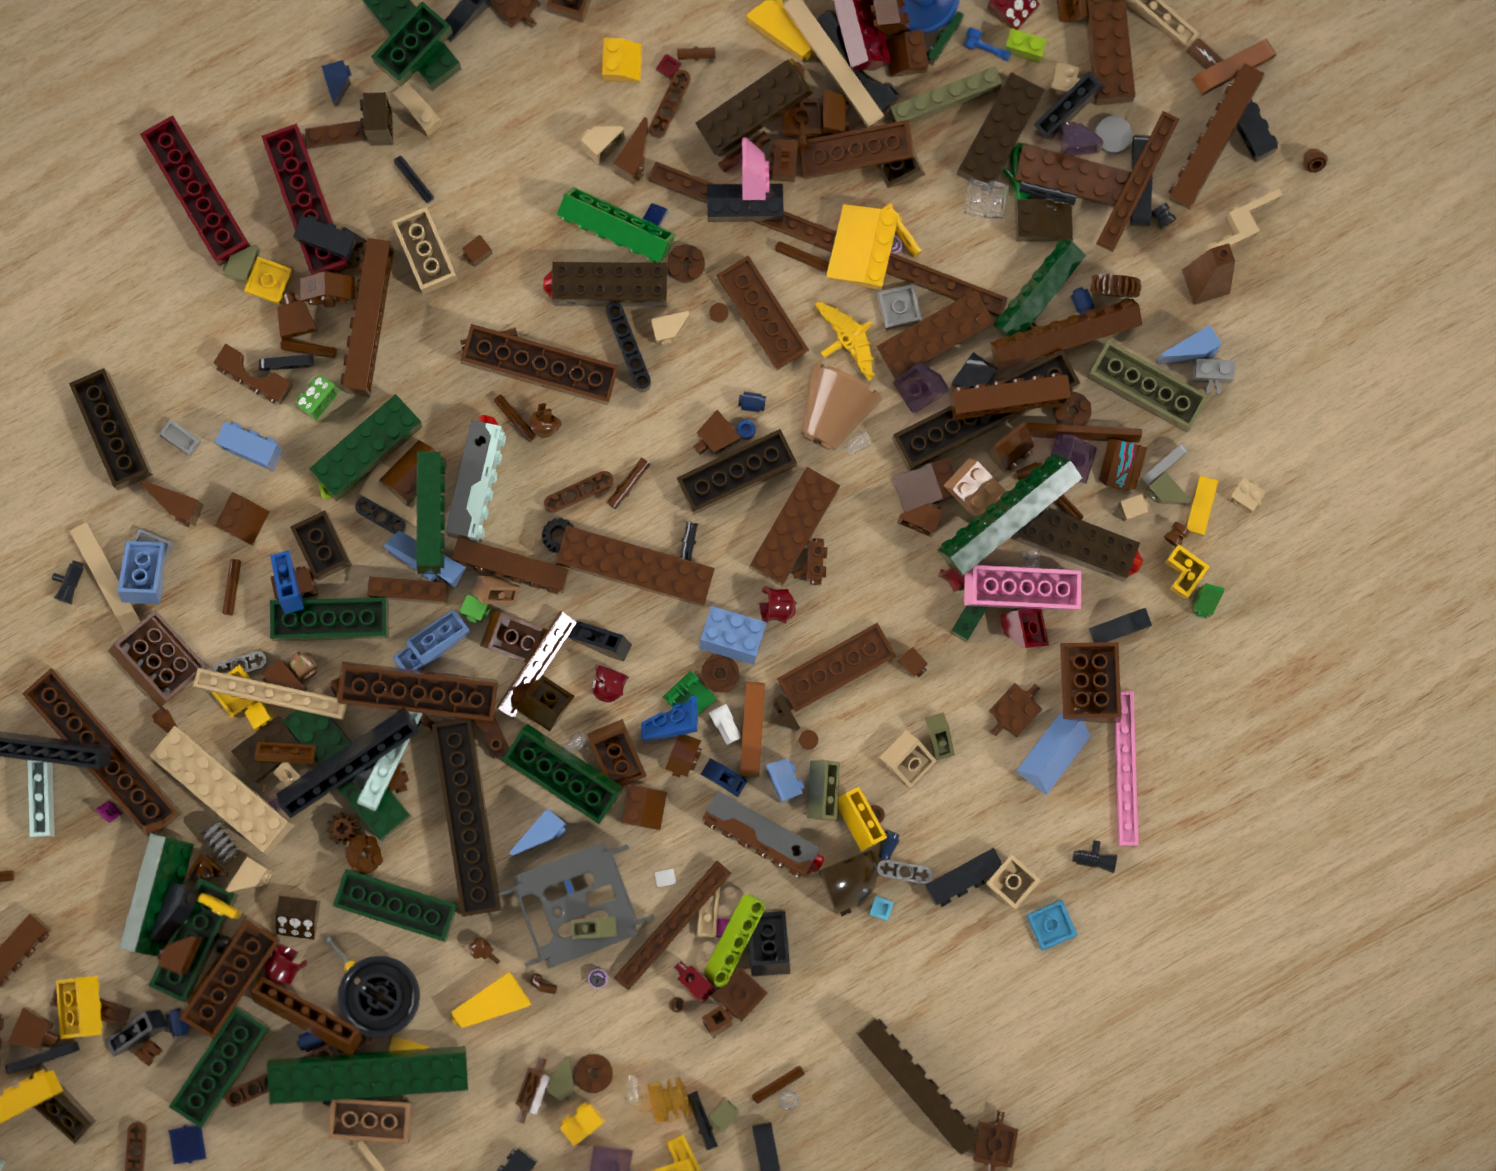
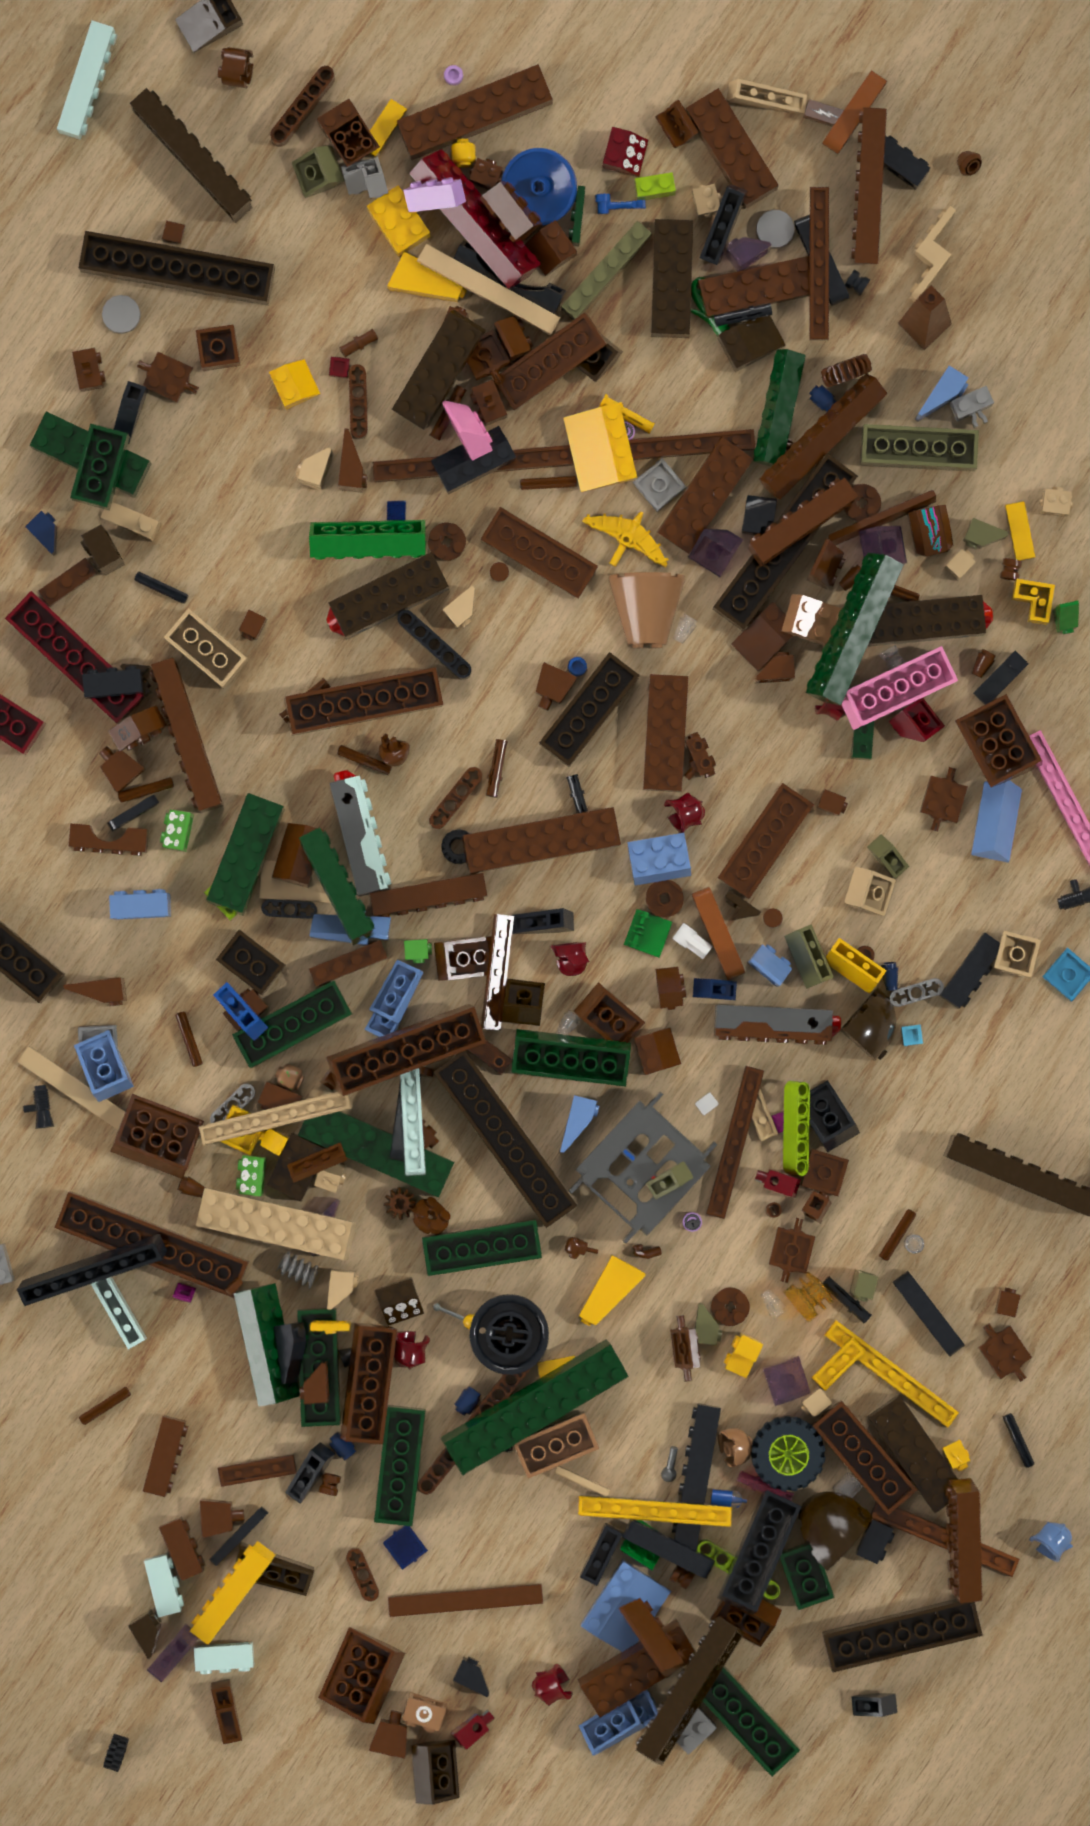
camera: 25 degrees left, 5 degrees up
(79, 1007) = (249, 1476): yellow slope -> none
(179, 437) = (71, 928): light grey tile -> none
(205, 868) = (296, 1299): reddish brown slope -> none
(224, 736) = (252, 1175): none -> bright green slope
(241, 264) = (46, 744): olive slope -> none
(242, 518) = (167, 973): reddish brown slope -> none
(268, 280) = (78, 746): yellow plate -> none
(306, 1015) = (453, 1383): reddish brown brick -> none
(347, 762) = (377, 1144): black brick -> none
(495, 590) = (426, 925): medium nougat slope -> none
(675, 1049) = (792, 1250): none -> reddish brown plate
(676, 722) = (648, 961): blue wing -> none
(752, 402) = (570, 639): dark blue brick -> none
(986, 199) = (690, 348): clear slope -> none
(1111, 605) = (983, 662): none -> reddish brown cone
(1165, 464) = (969, 510): light grey beam -> none

